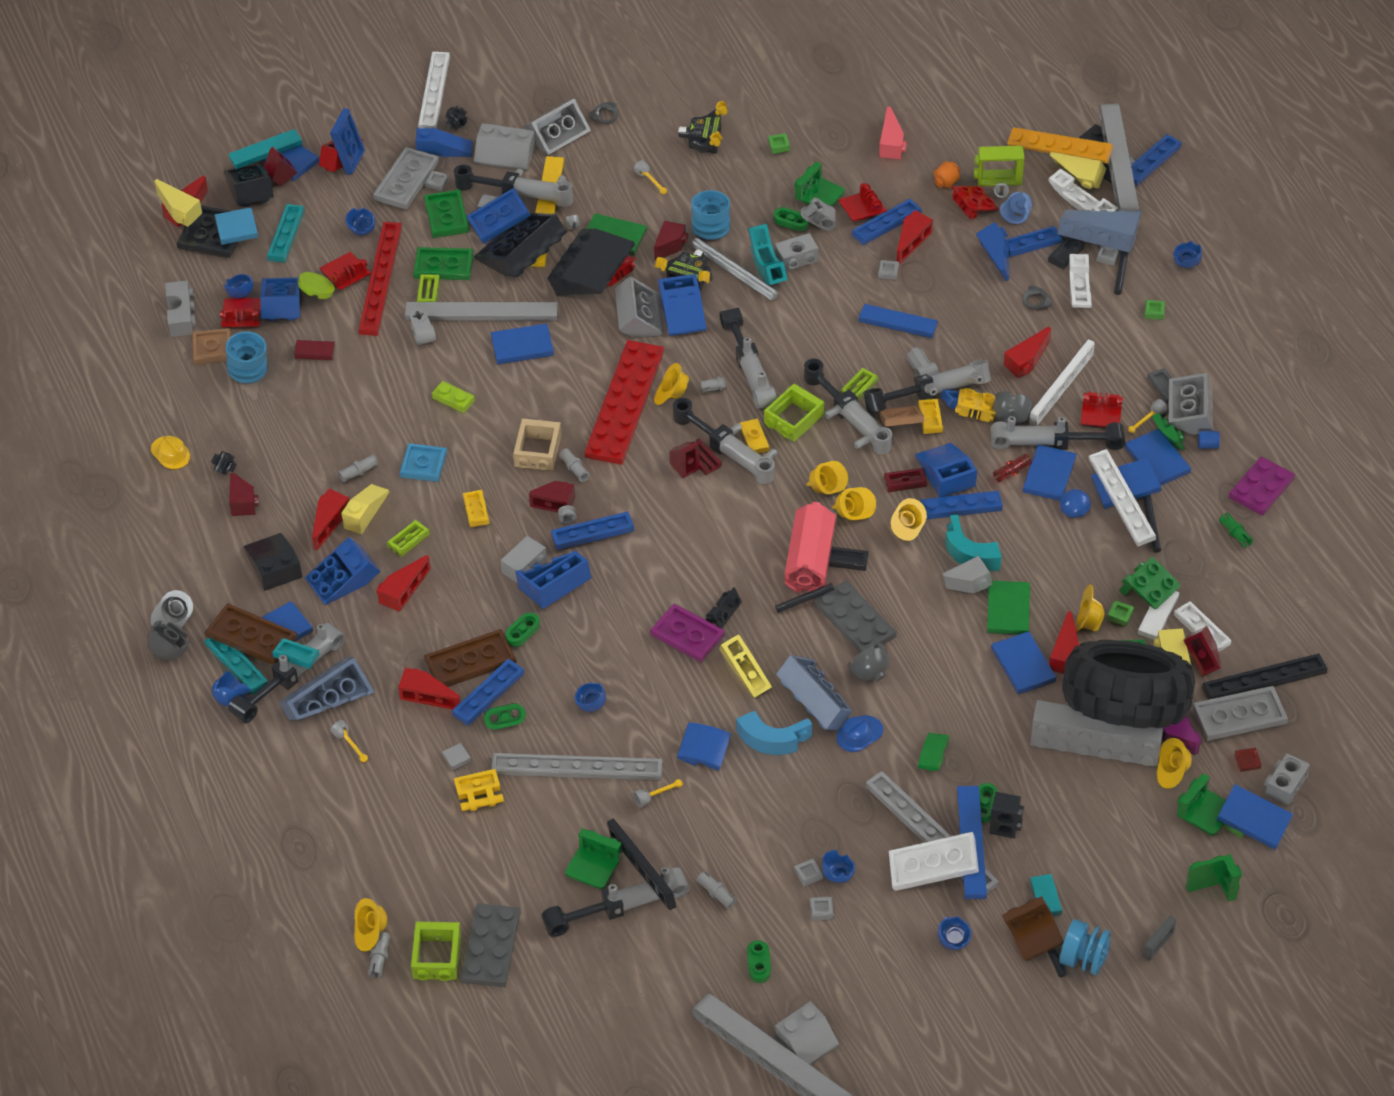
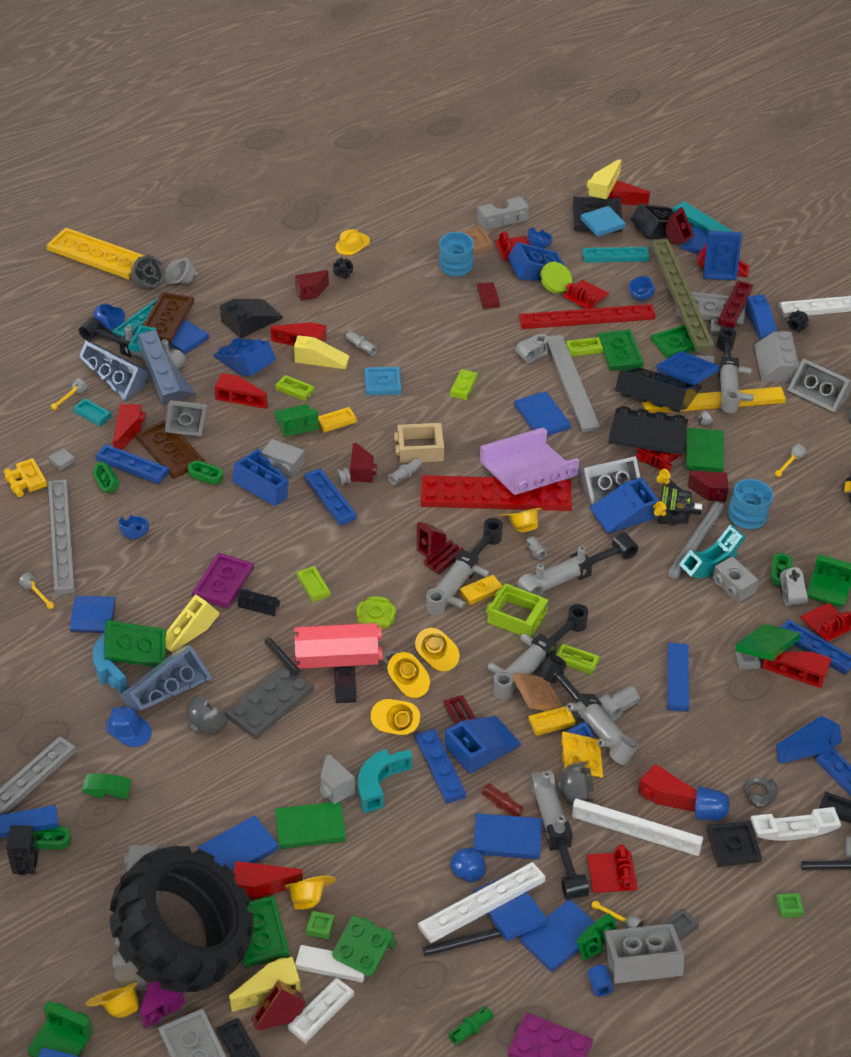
camera: 75 degrees right, 5 degrees down
(95, 692) = (94, 252): none -> yellow plate
(354, 641) = (165, 375): none -> sand blue wedge
(385, 723) = (92, 412): none -> teal tile
(388, 190) = (682, 296): none -> olive plate
(416, 155) = (735, 304): none -> dark red tile
(441, 630) = (185, 418): none -> light grey slope
(465, 541) = (297, 420): none -> green bracket
(602, 365) = (526, 462): none -> lavender panel
(708, 563) = (313, 584): none -> lime tile
(762, 521) = (376, 610): none -> lime tile
(766, 707) = (134, 643): none -> green tile
(884, 246) = (767, 642): none -> green tile
(1052, 324) = (711, 804): none -> blue hair
(1090, 325) = (733, 843): none -> black plate

